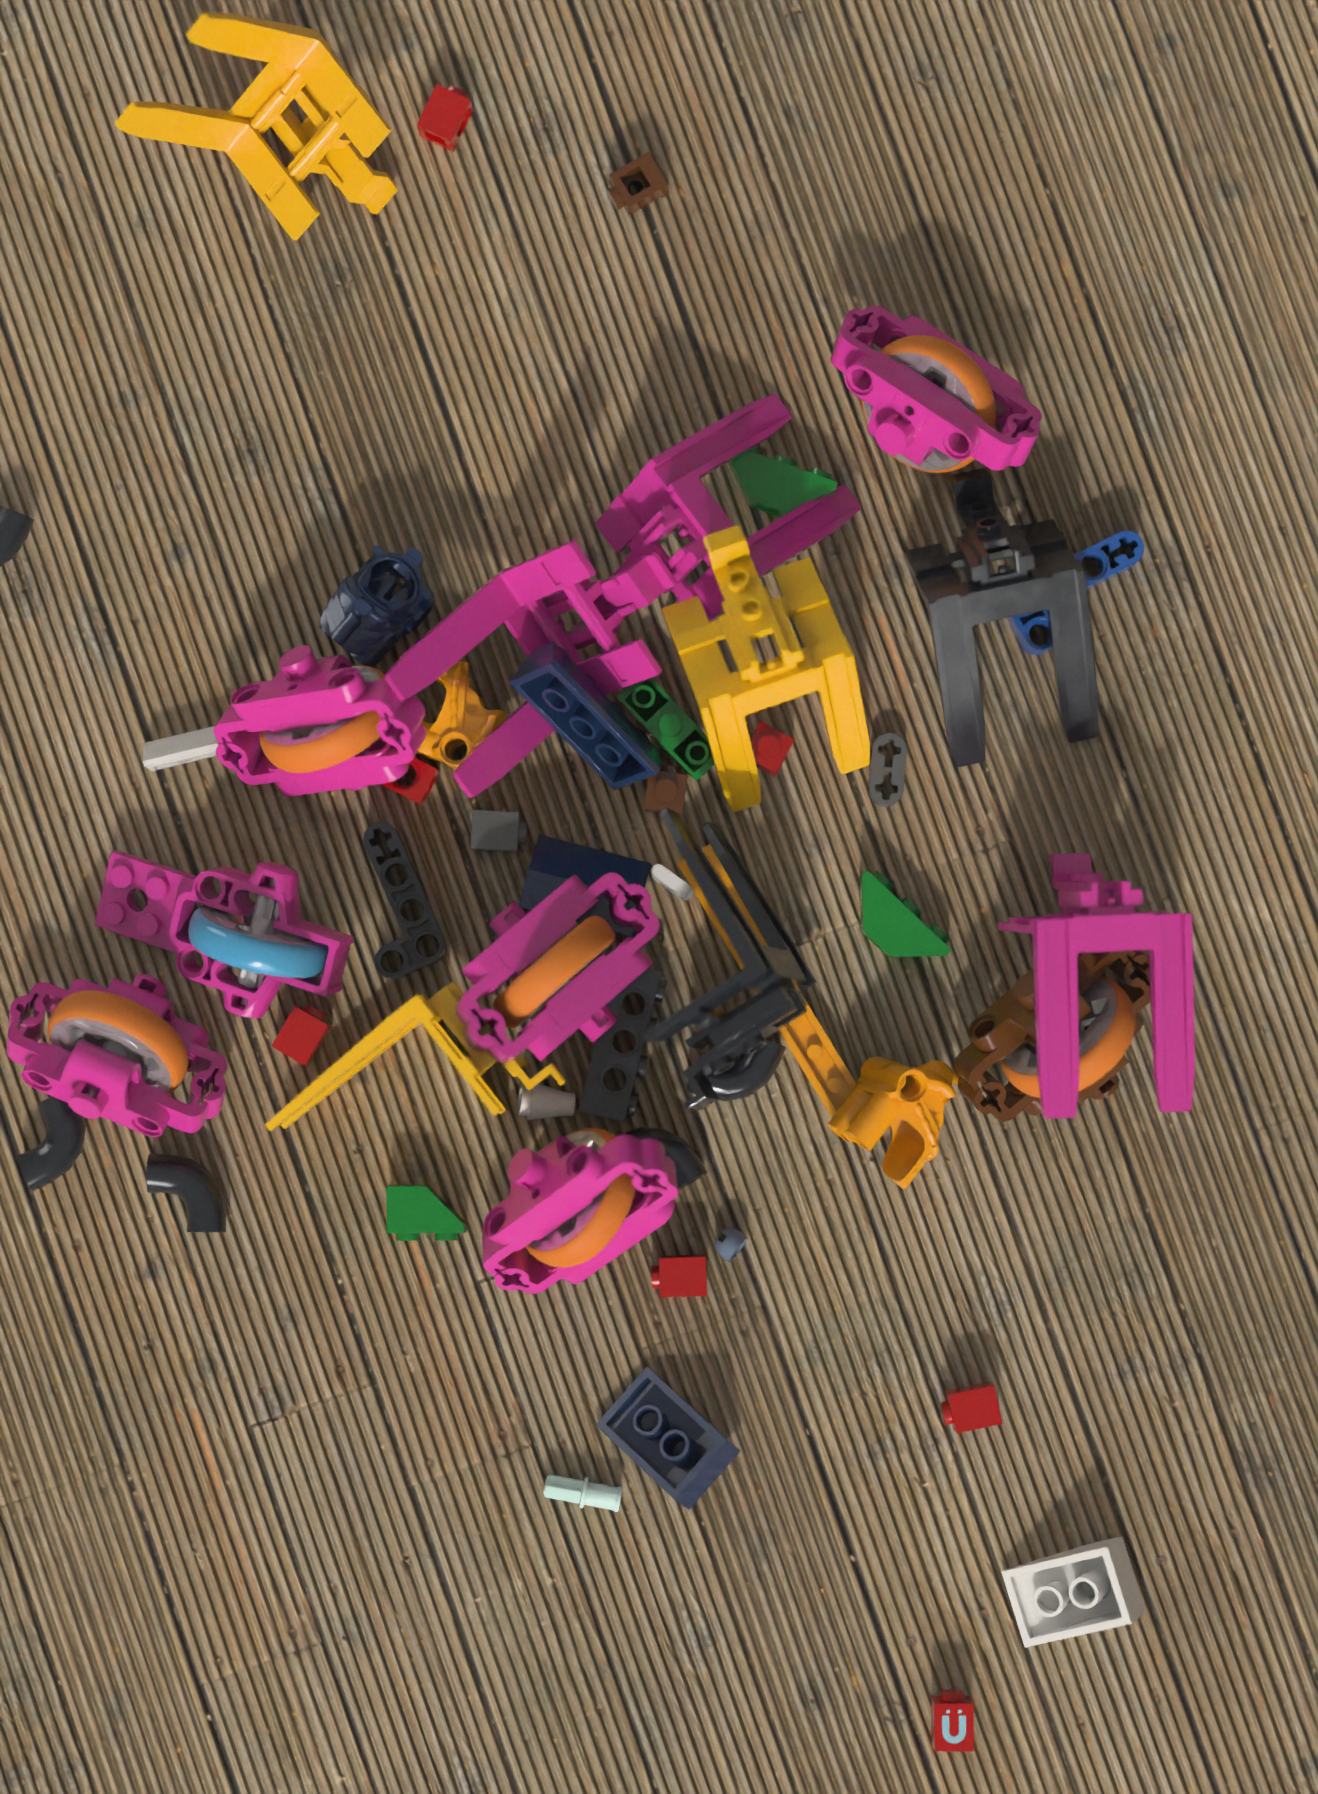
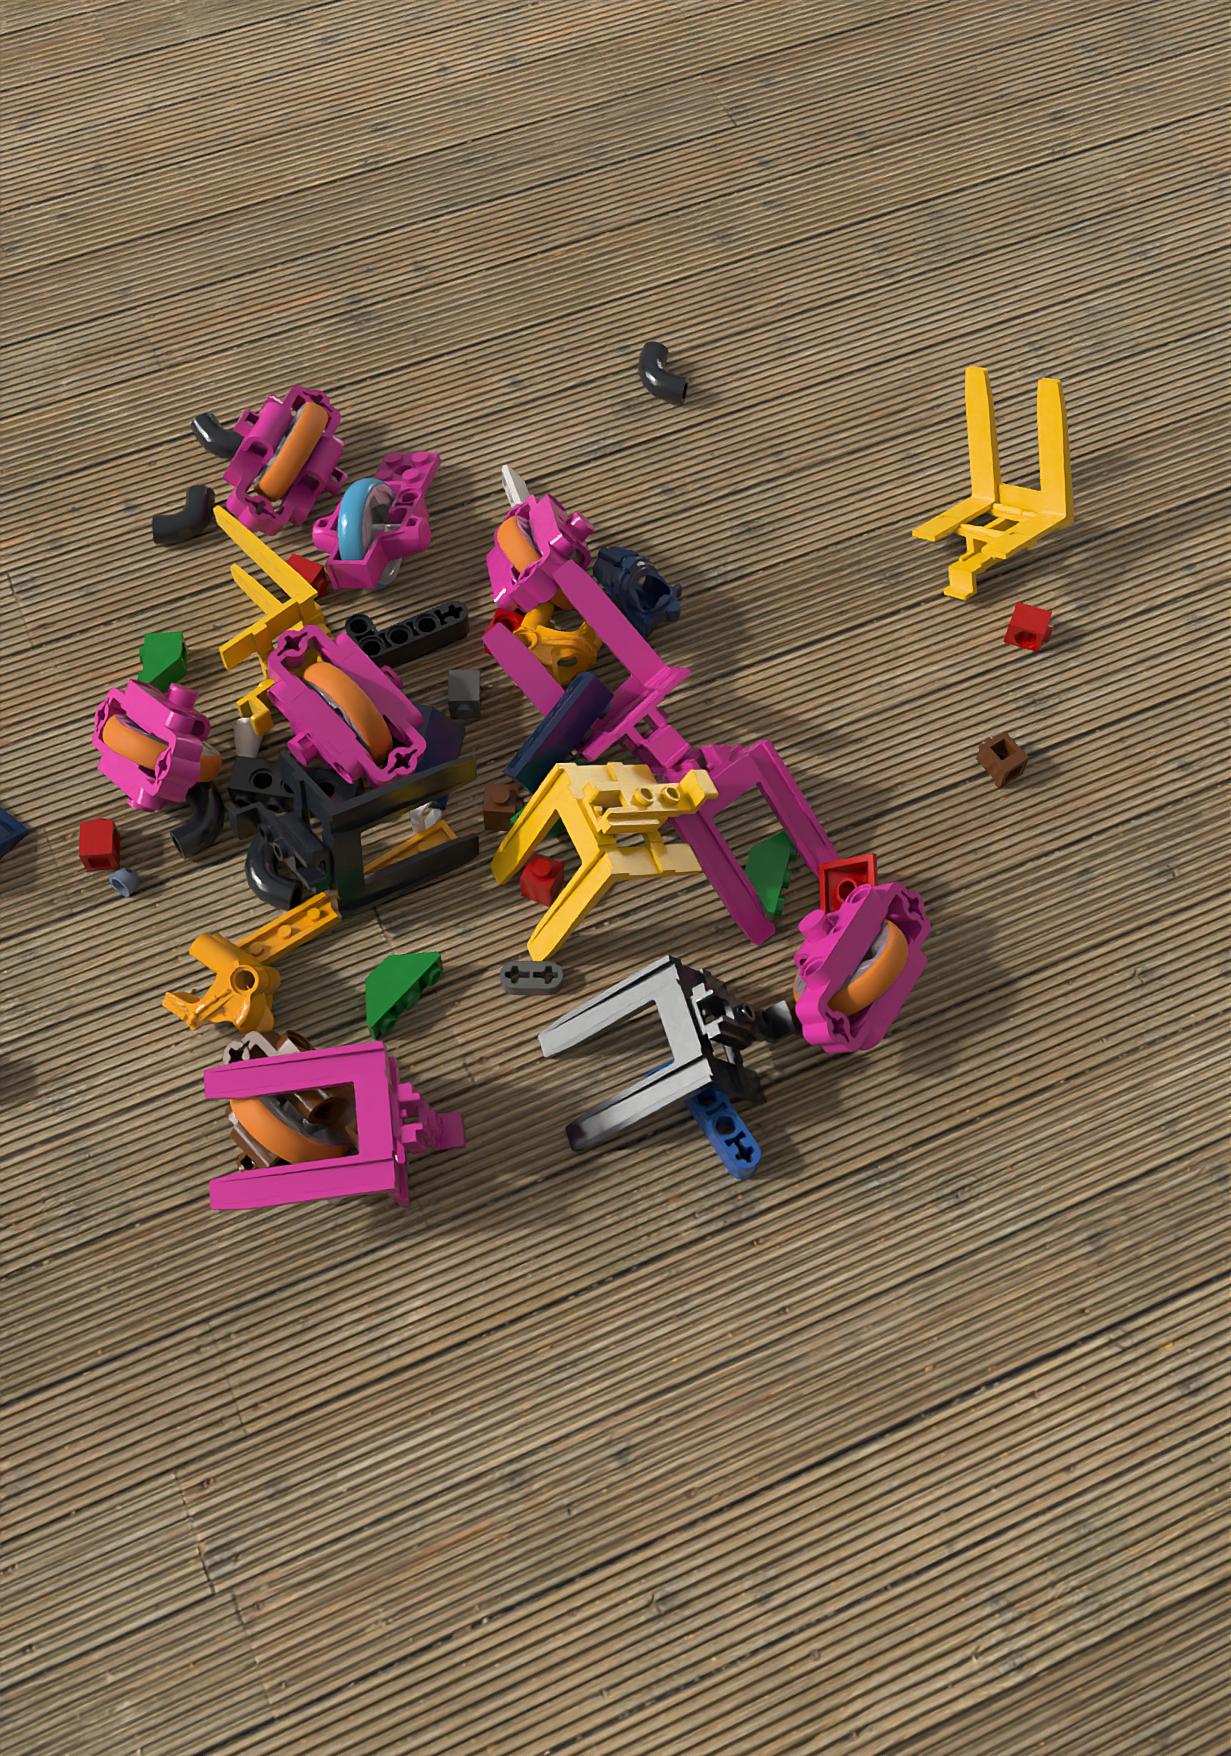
camera: 85 degrees right, 25 degrees down
(809, 394) = (842, 876): none -> red slope

